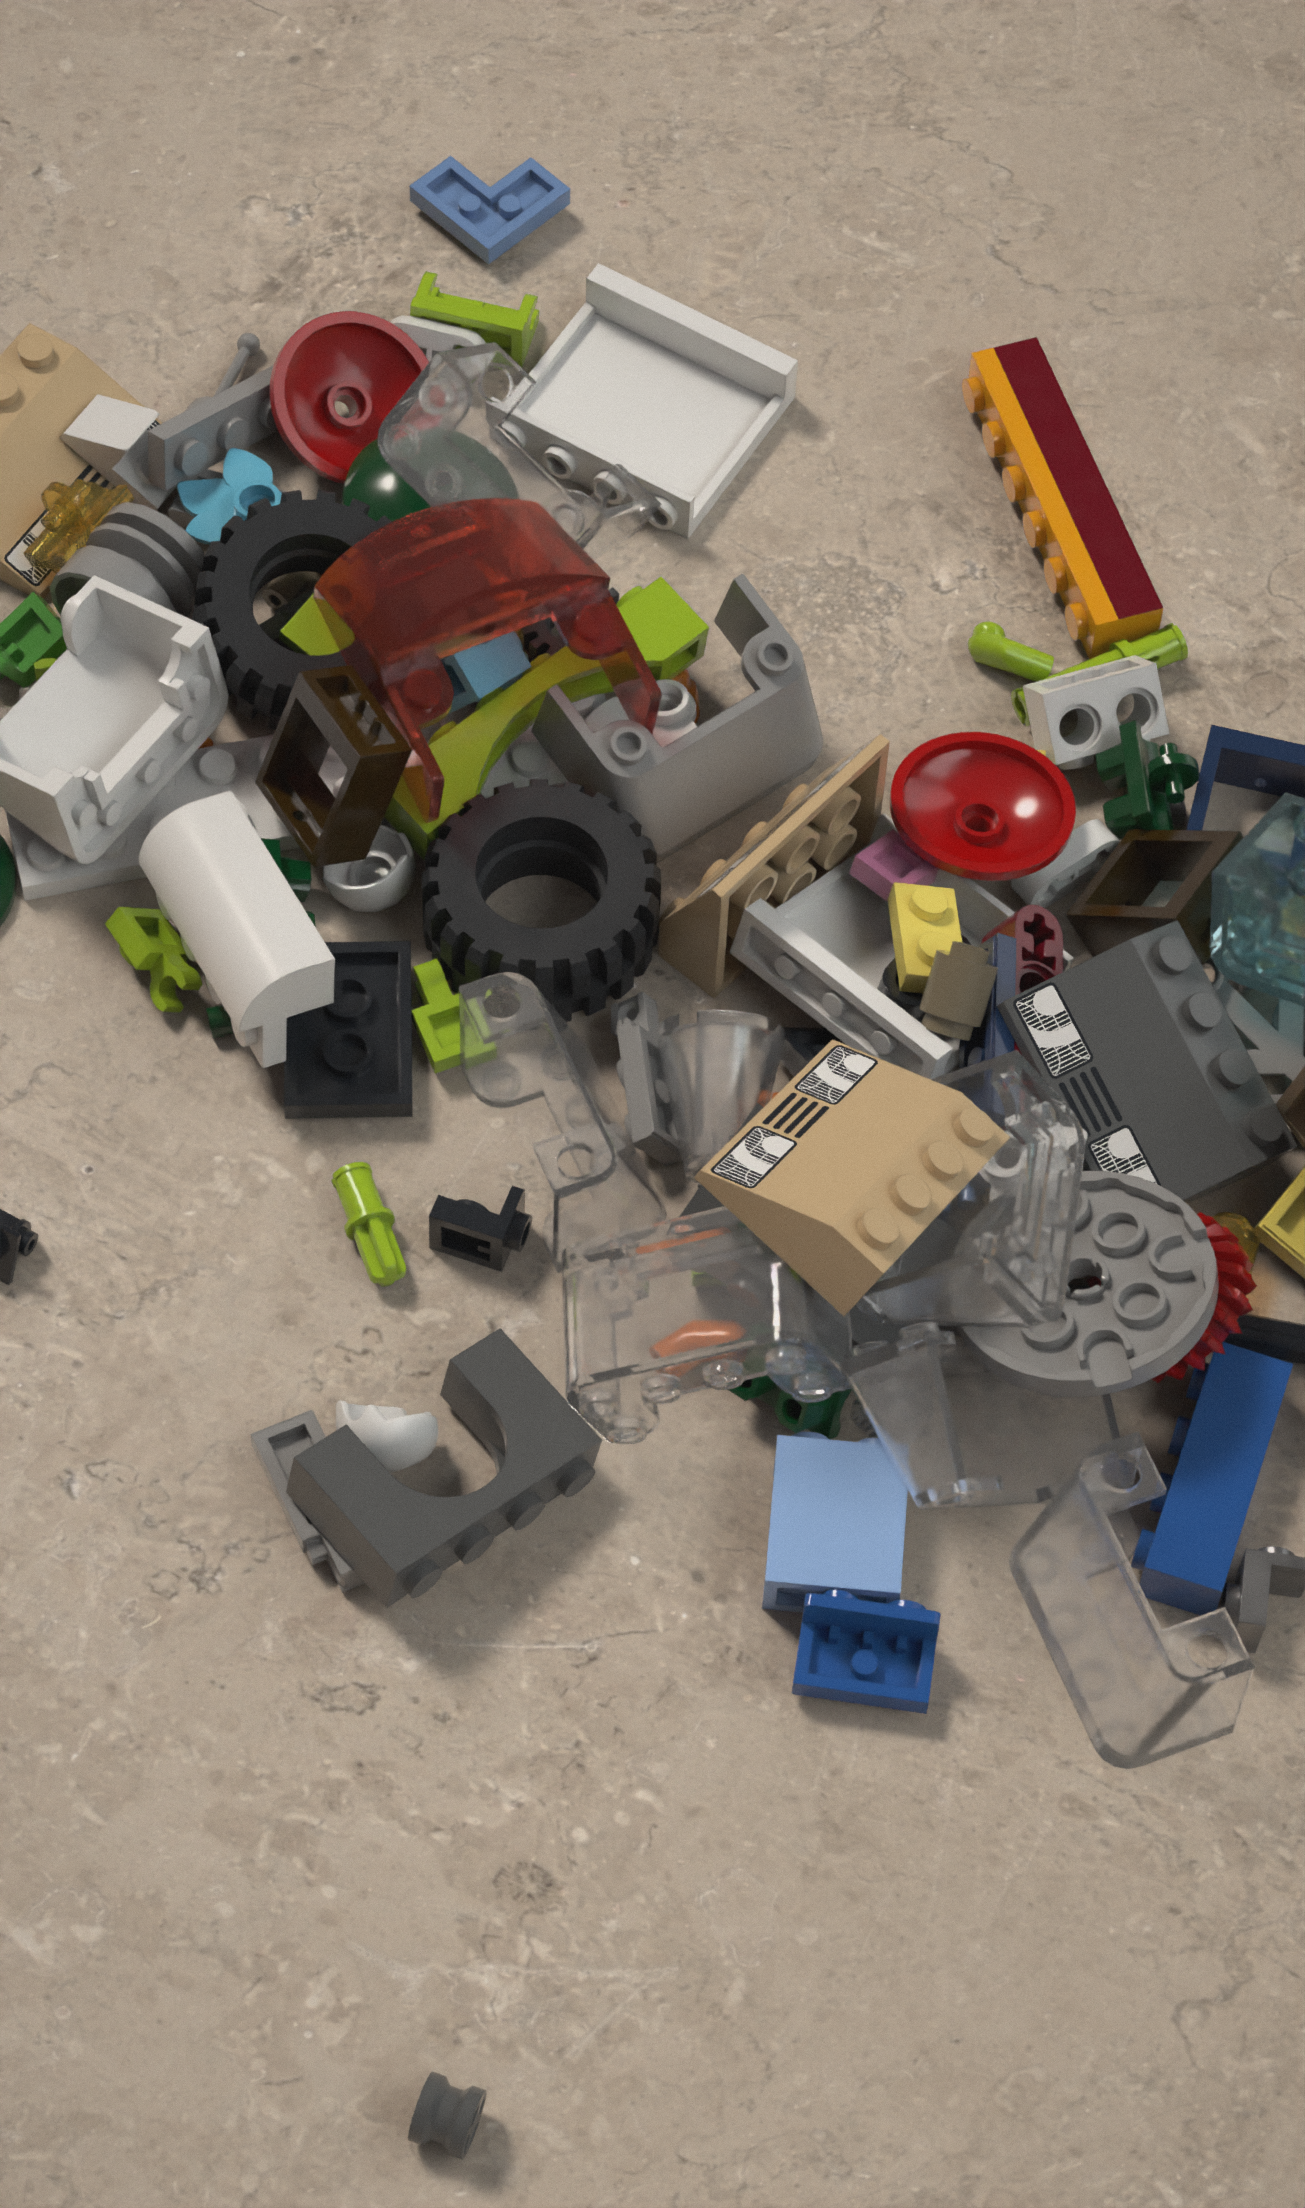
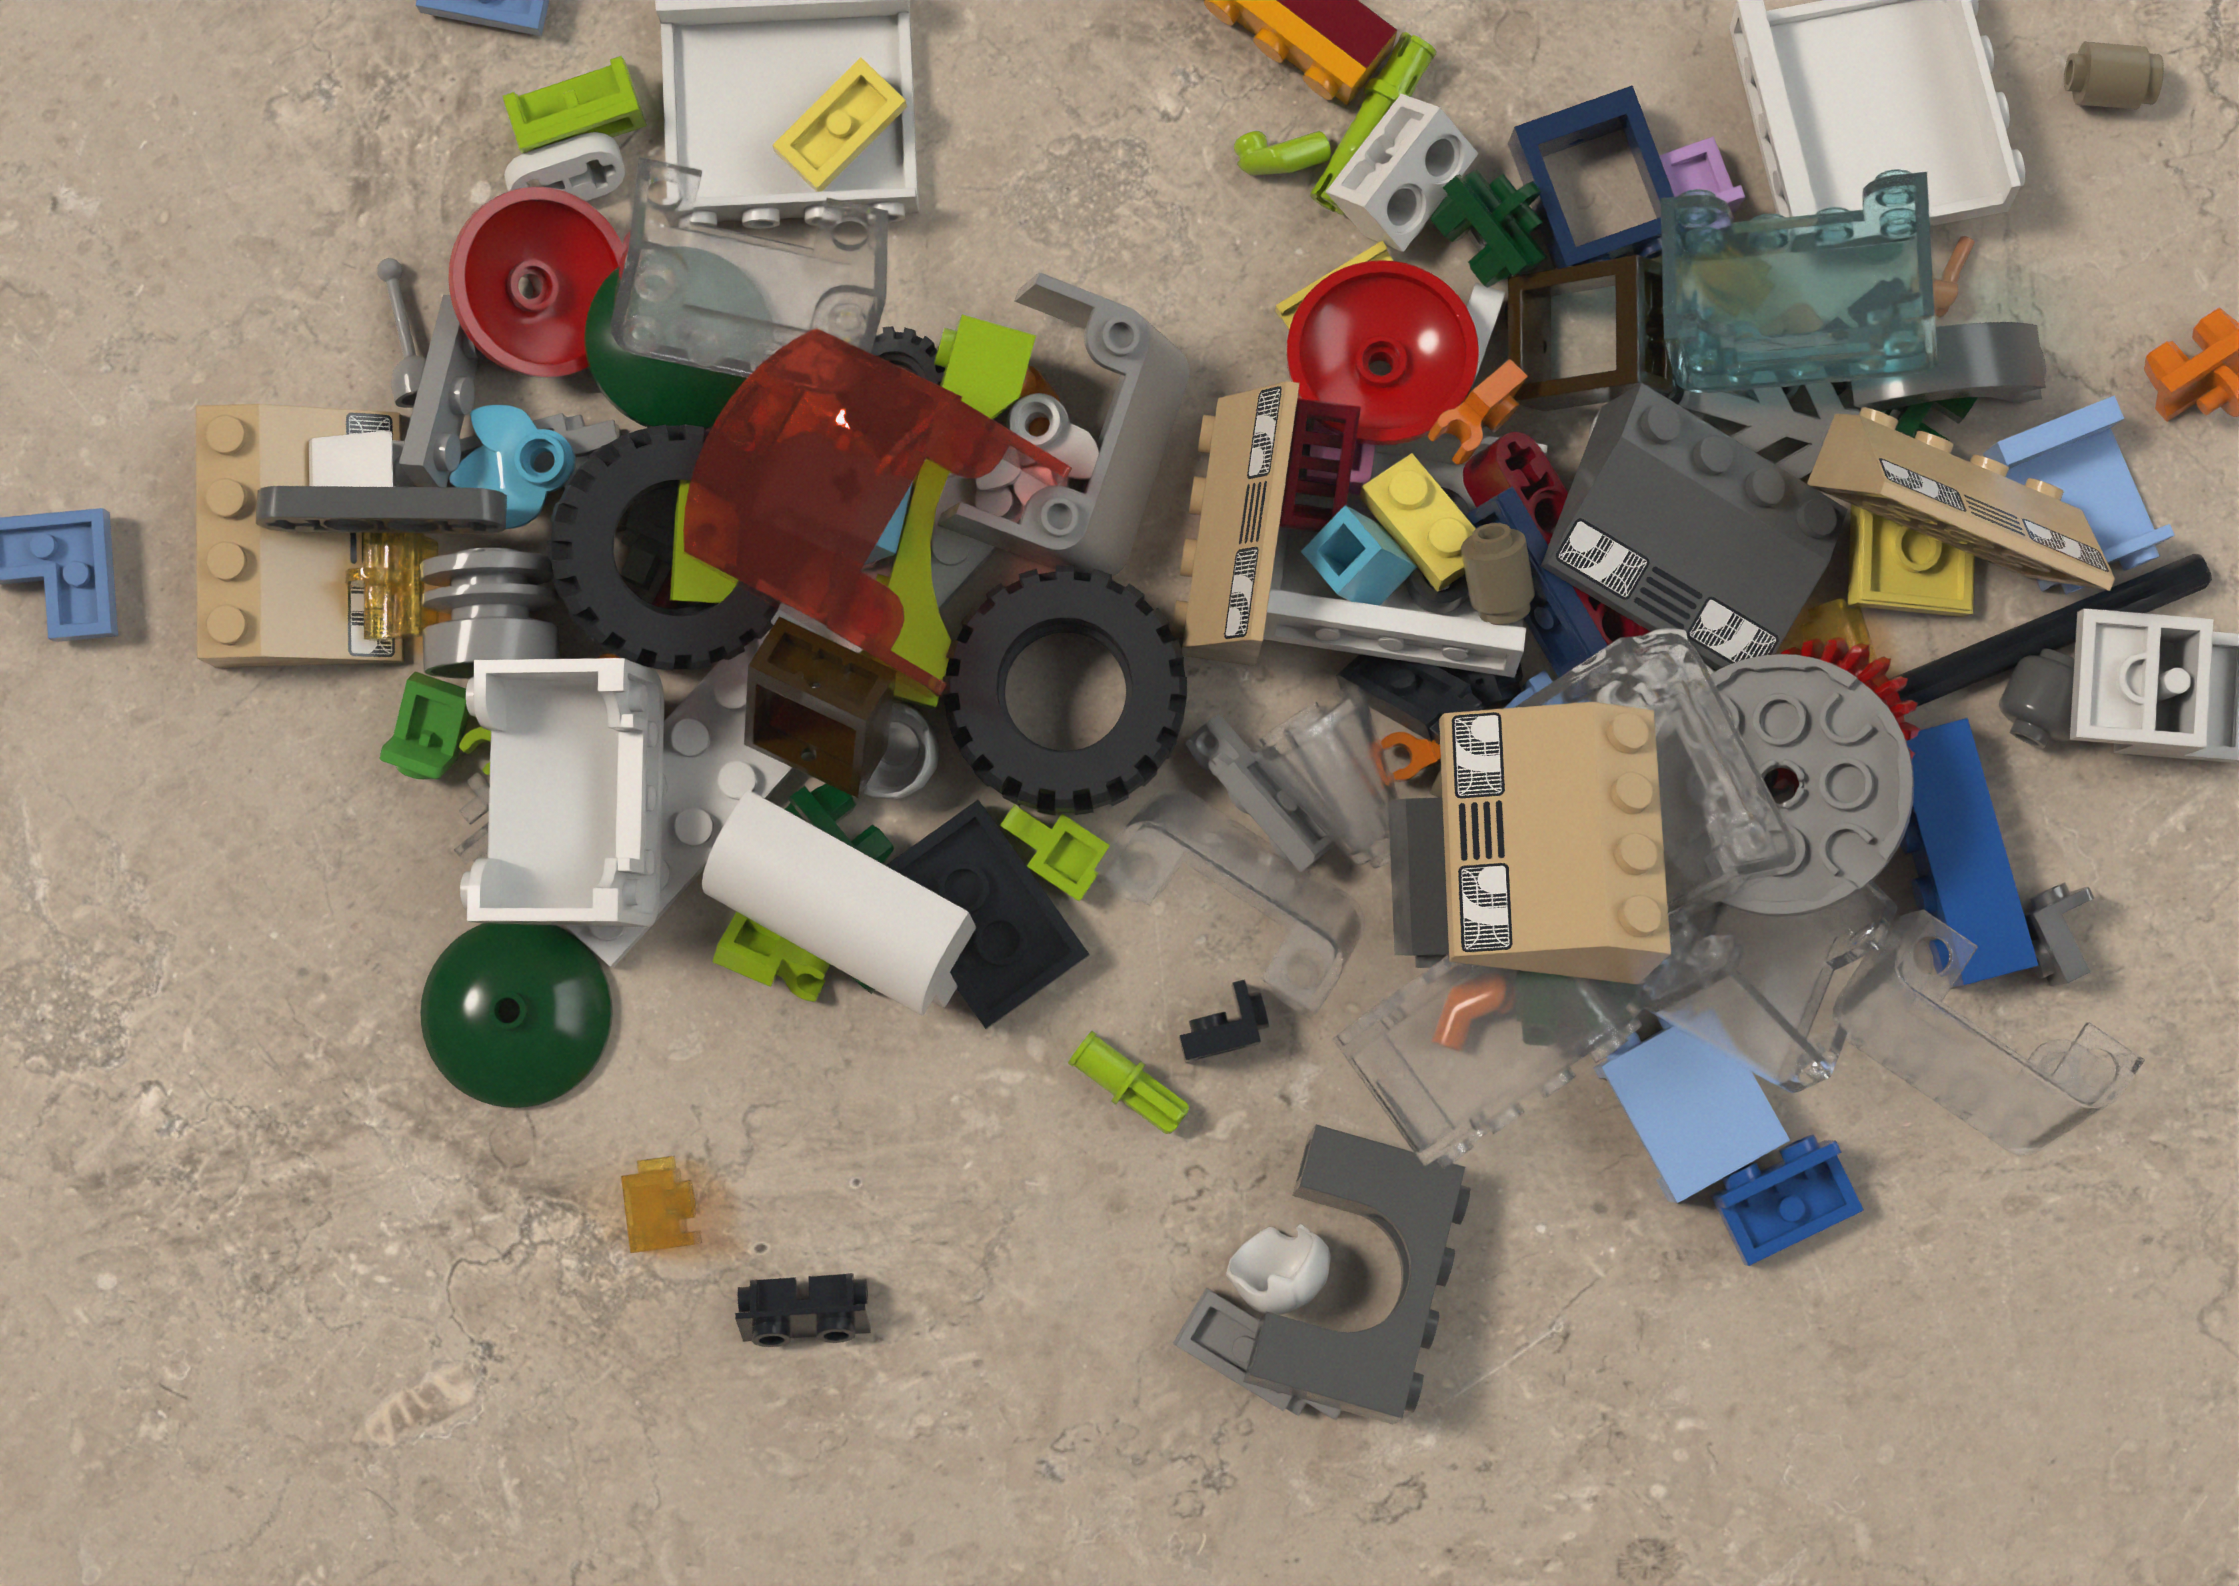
camera: 30 degrees left, 25 degrees up
(109, 455) = (381, 509): none -> dark grey beam
(669, 430) = (840, 125): none -> light yellow plate
(835, 850) = (1313, 517): none -> dark red slope
(852, 921) = (1358, 558): none -> medium azure brick
(1041, 882) = (1486, 405): none -> orange plate

